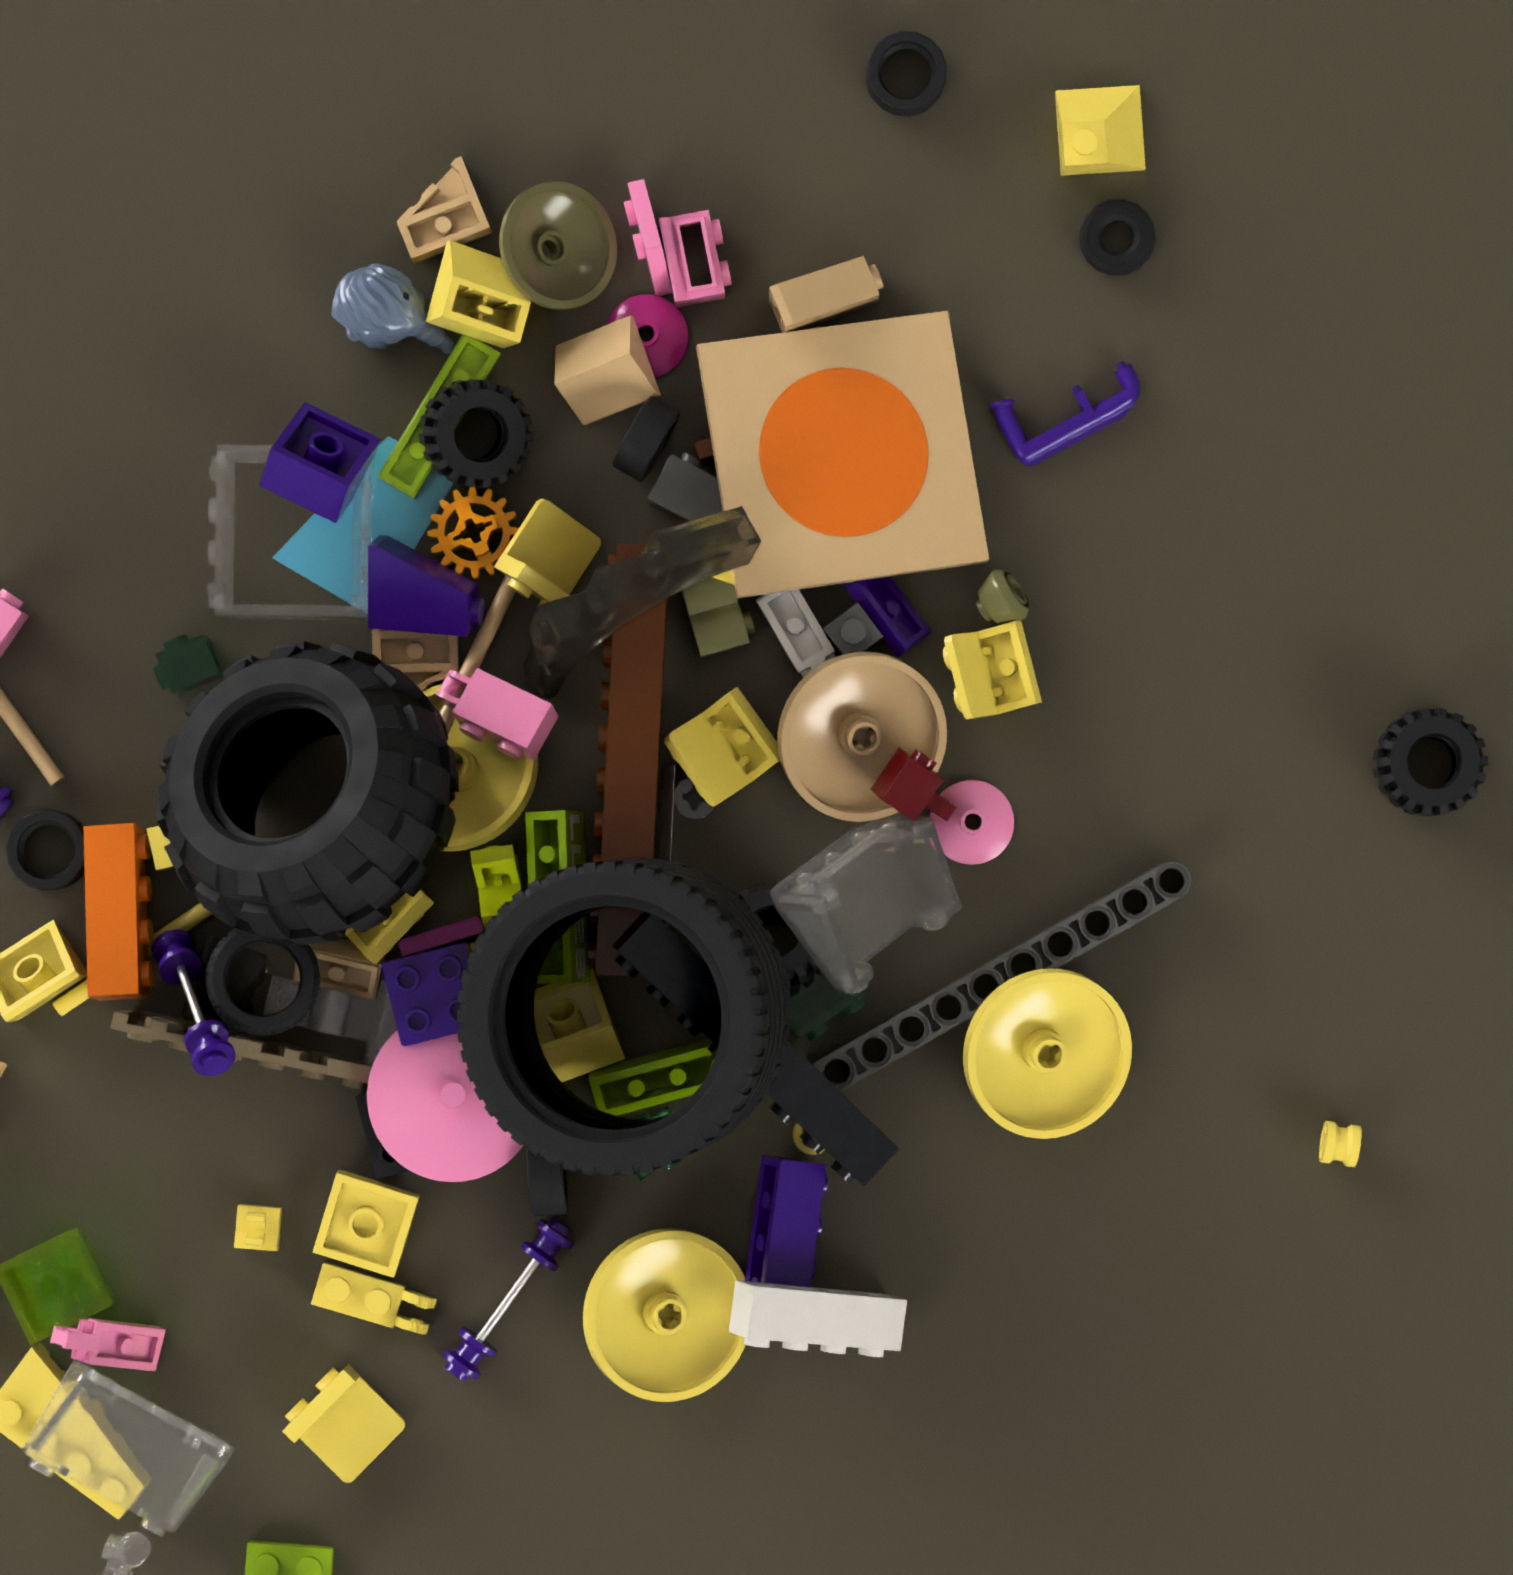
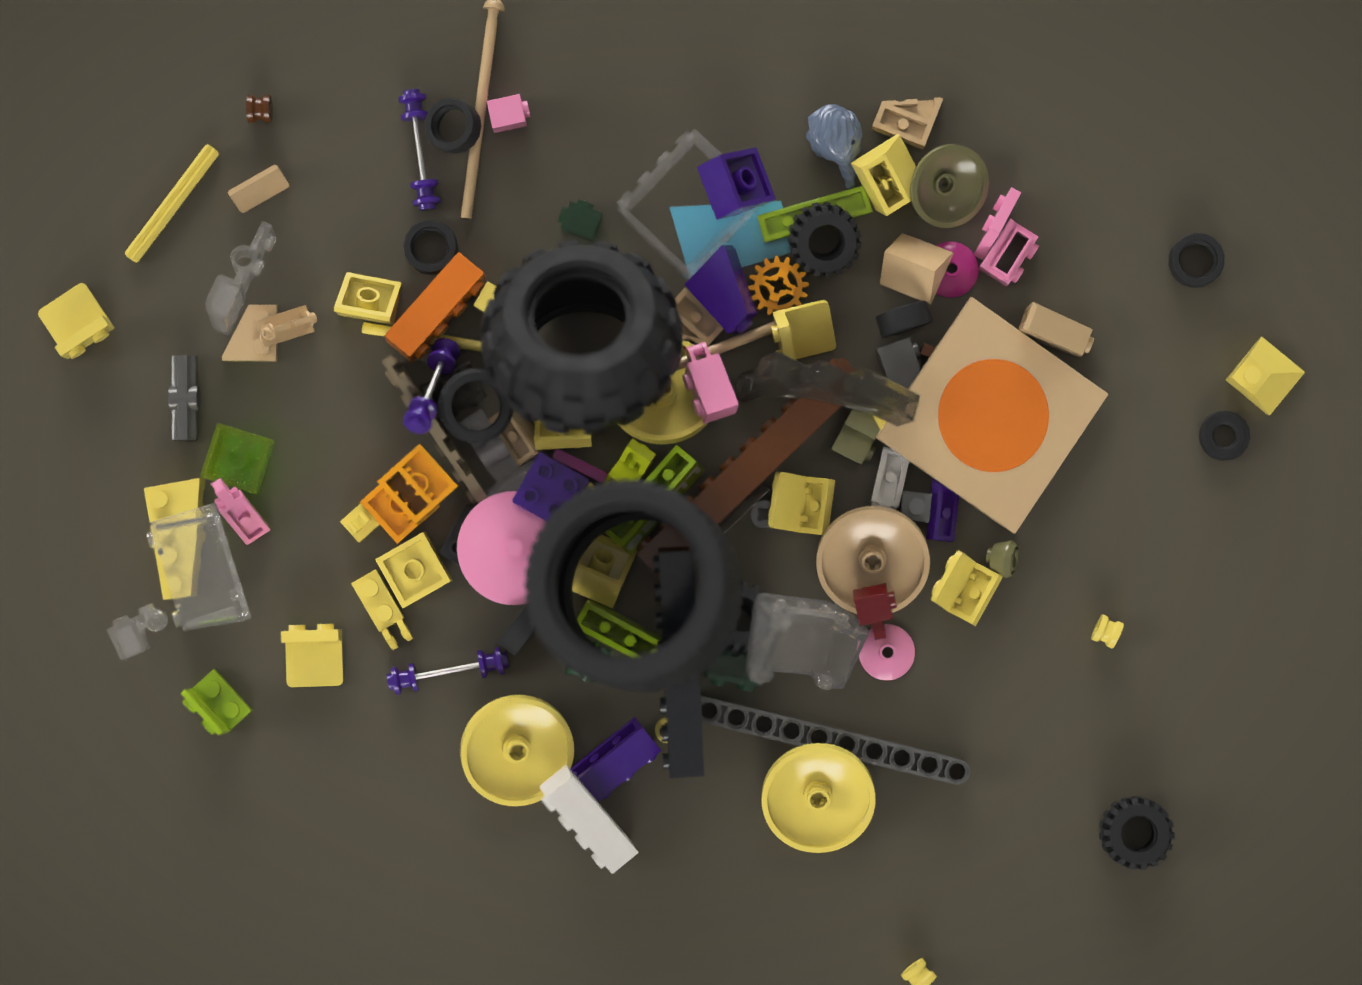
camera: 50 degrees right, 0 degrees up
(281, 1145) = (409, 493): none -> light orange bracket
(1072, 430) = (1115, 509): dark purple piece -> none
(1191, 572) = (1107, 631): none -> light yellow wheel

